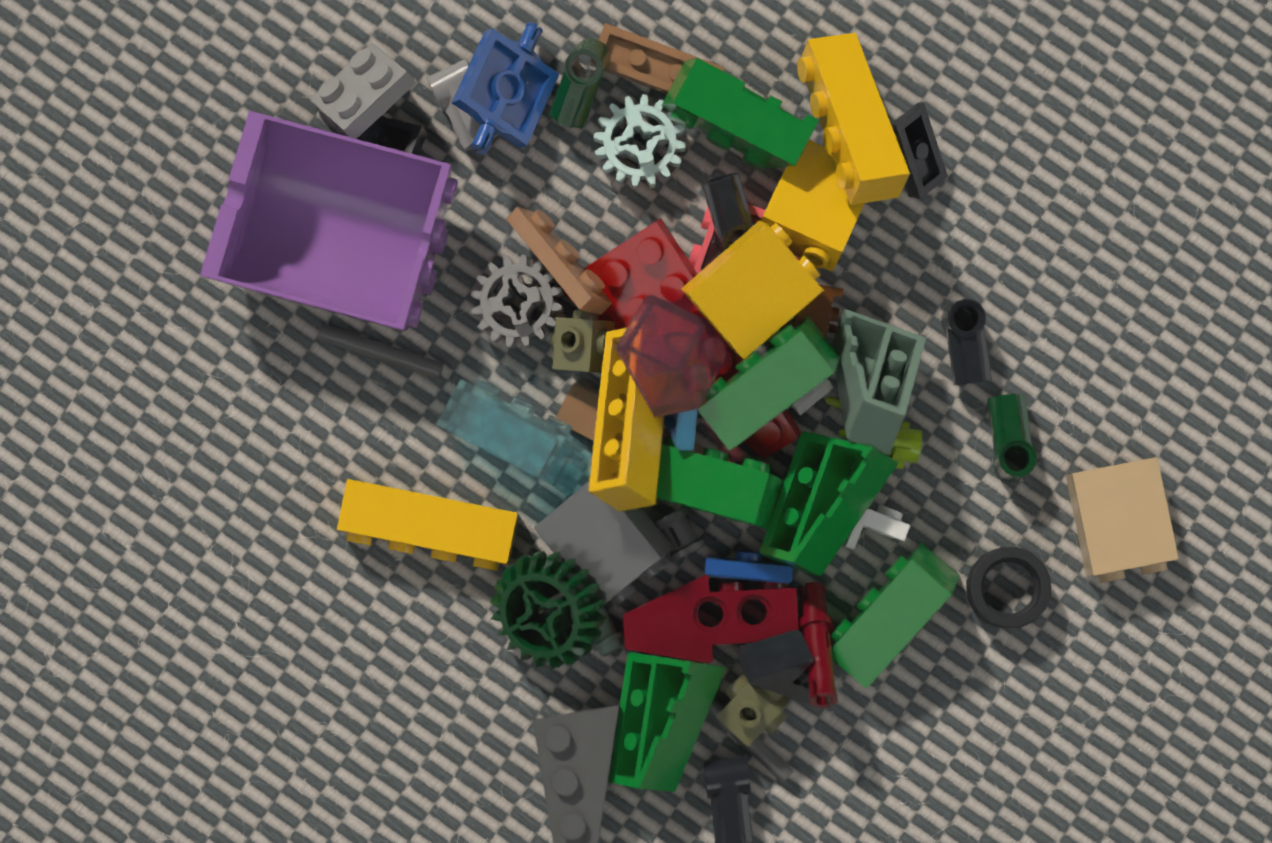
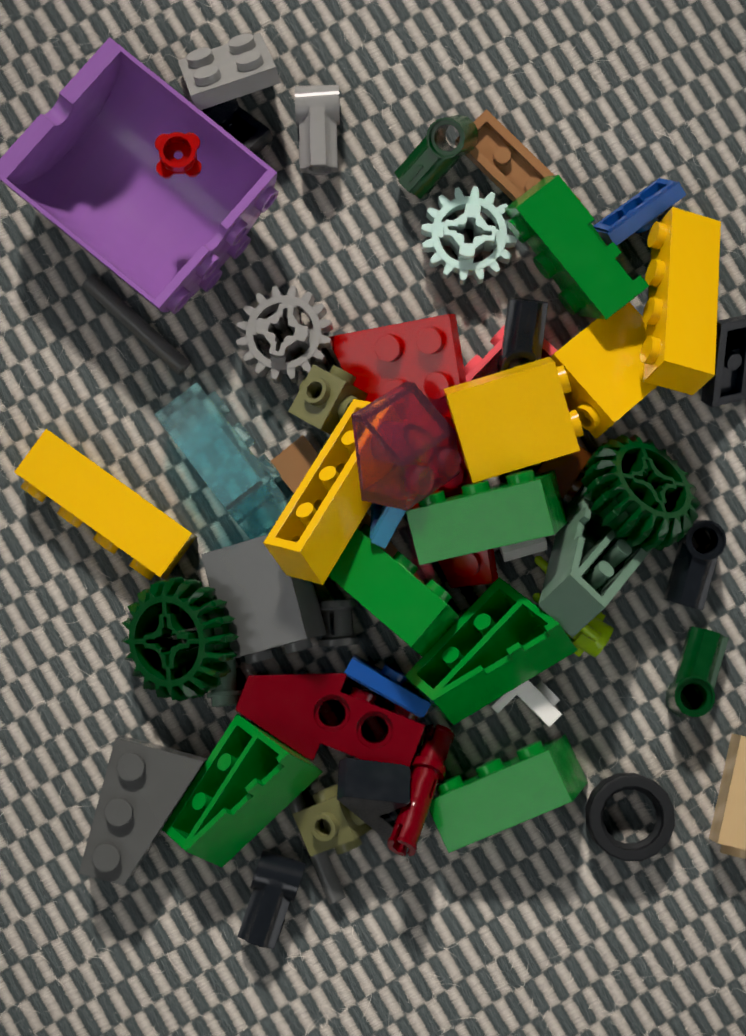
camera: 25 degrees right, 0 degrees up
(362, 176) = (178, 142): none -> red plate
(505, 88) = (364, 127): blue plate -> none
(560, 260) = (342, 312): medium nougat plate -> none
(780, 54) = (640, 211): none -> blue plate
(891, 302) = (640, 492): none -> dark green gear

